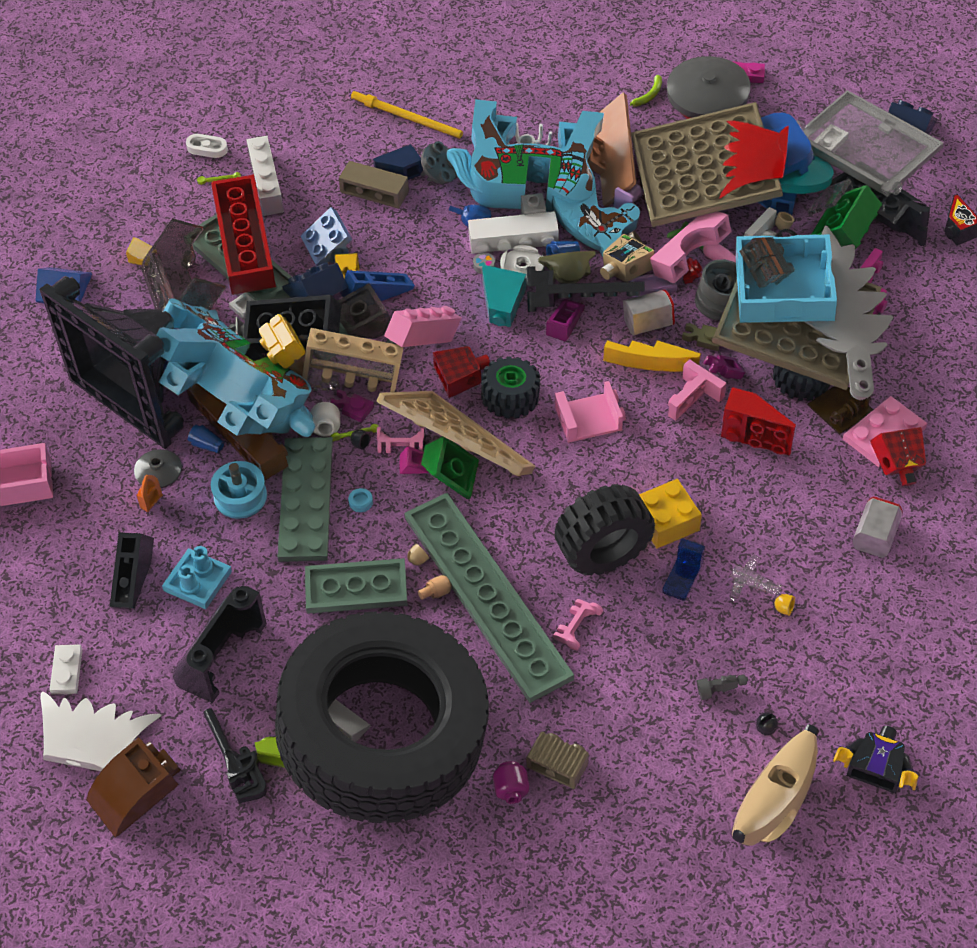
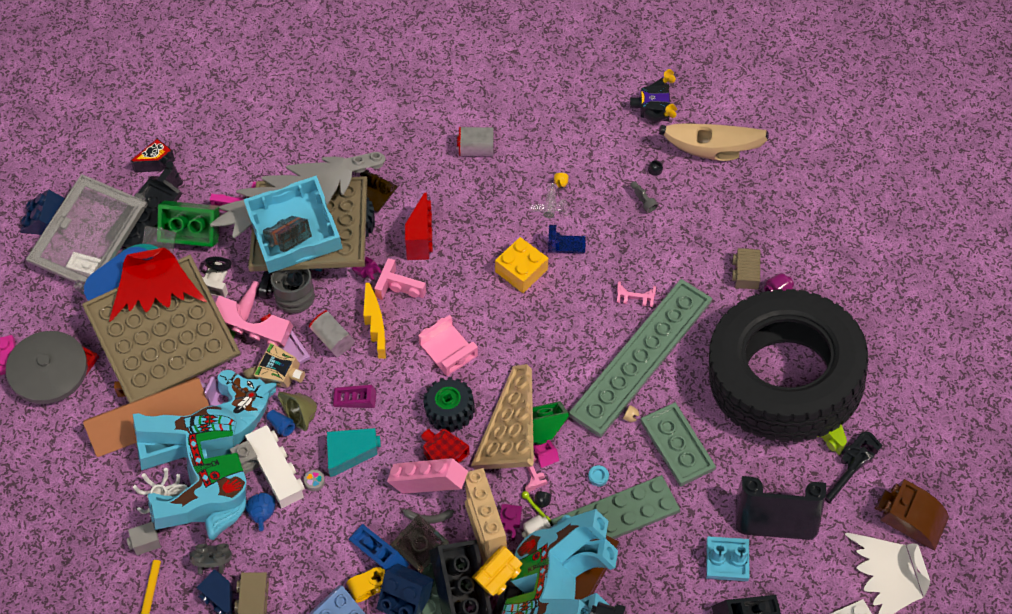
camera: 115 degrees left, 5 degrees up
(239, 489) = (637, 562): medium azure wheel -> none
(436, 588) = (652, 391): light nougat cylinder -> none
(519, 255) = (307, 458): white plate -> none
(547, 288) = (325, 382): black hinge -> none
(604, 529) = (571, 281): black tyre -> none
(650, 95) = (53, 419): lime piece -> none
(702, 336) = (335, 294): olive plate -> none
(885, 418) = (396, 162): bright pink plate -> none
(900, 453) = (406, 140): red torso -> none

